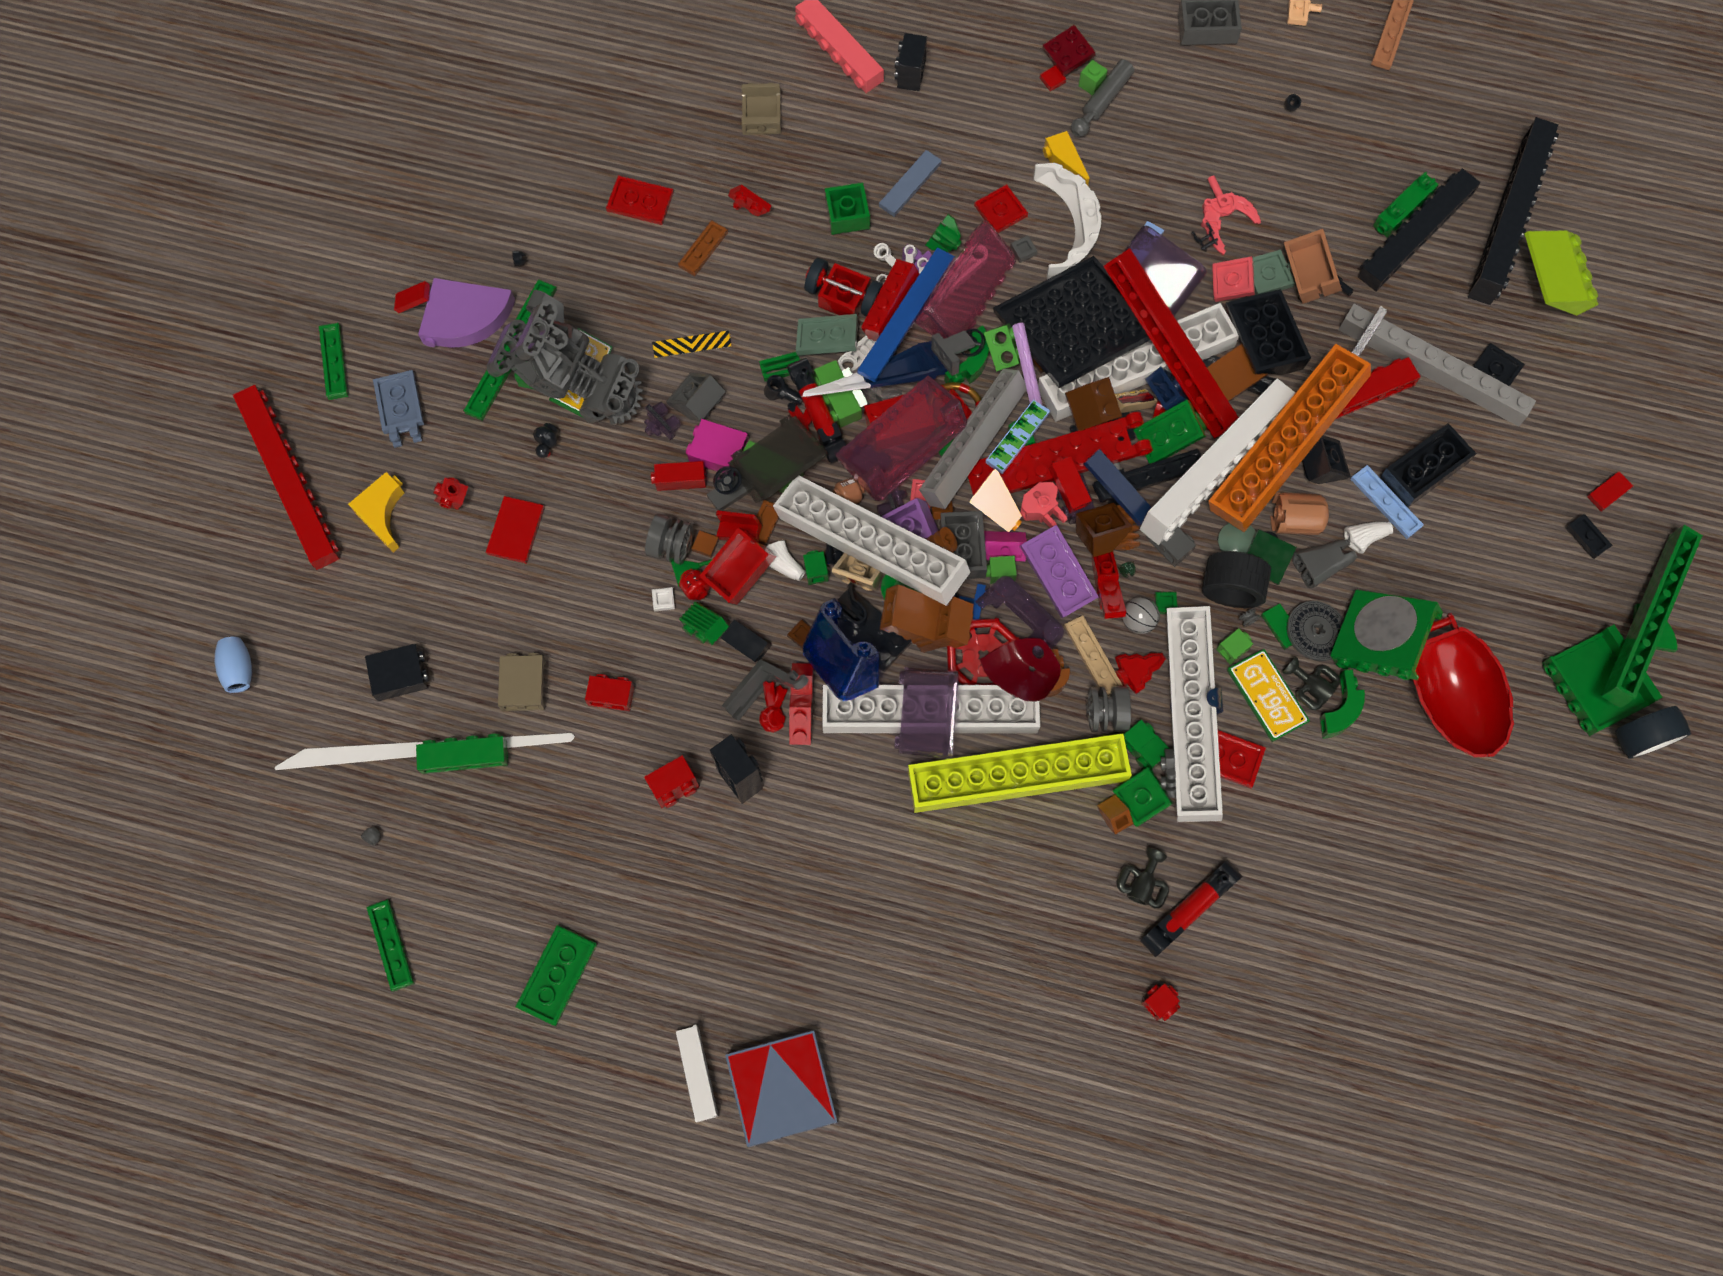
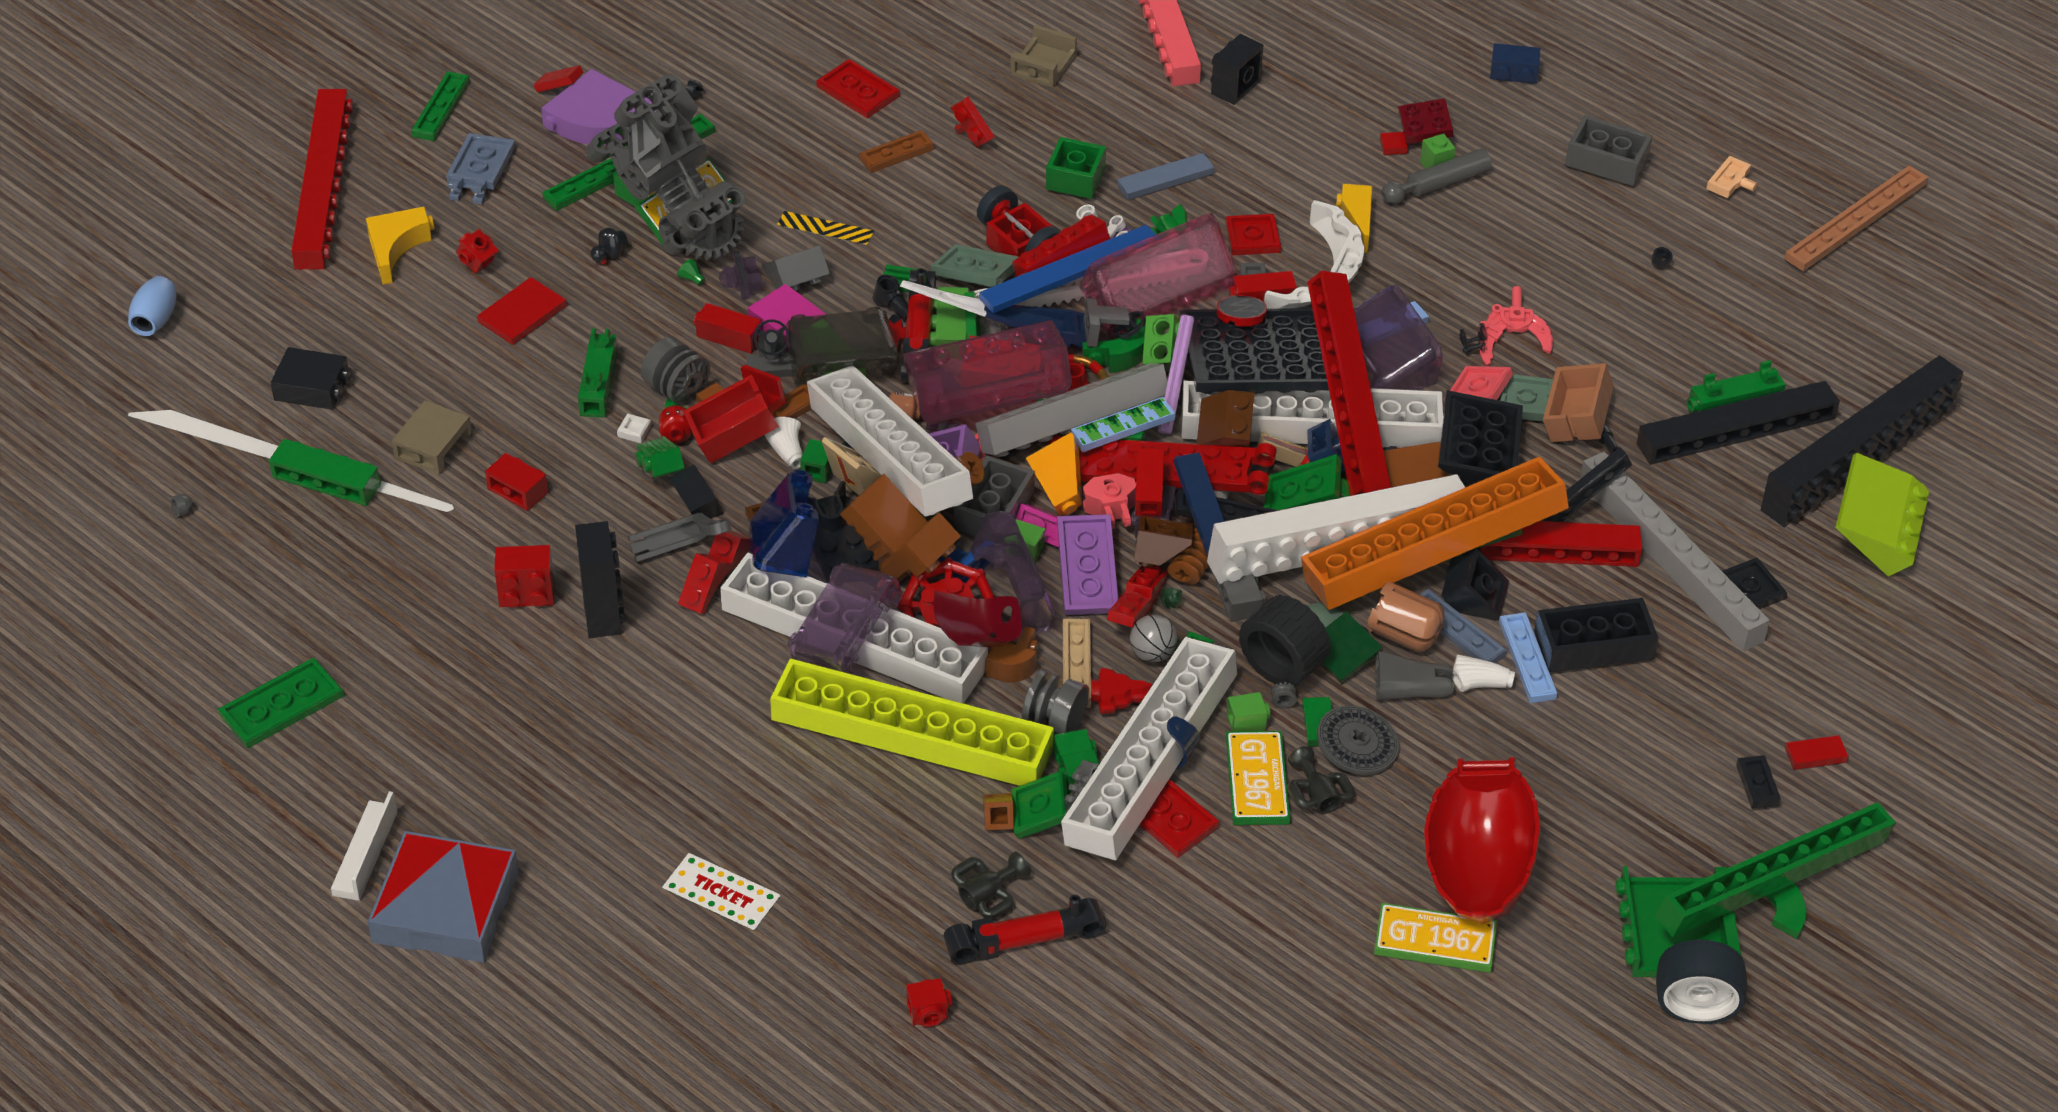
camera: 25 degrees right, 25 degrees down
(390, 945) = (130, 606): green tile -> none
(610, 565) = (597, 374): none -> green brick
(620, 435) = (690, 272): none -> green rock
(772, 717) = (675, 570): red piece -> none
(964, 976) = (721, 891): none -> white sticker
(1037, 261) = (1257, 284): none -> red brick
(1039, 289) = (1242, 310): none -> tile
(1337, 502) = (1466, 634): none -> sand blue tile
(1351, 707) = (1338, 828): green arch -> none
(1385, 634) = (1424, 755): green panel -> none
(1450, 773) = (1434, 938): none -> tile

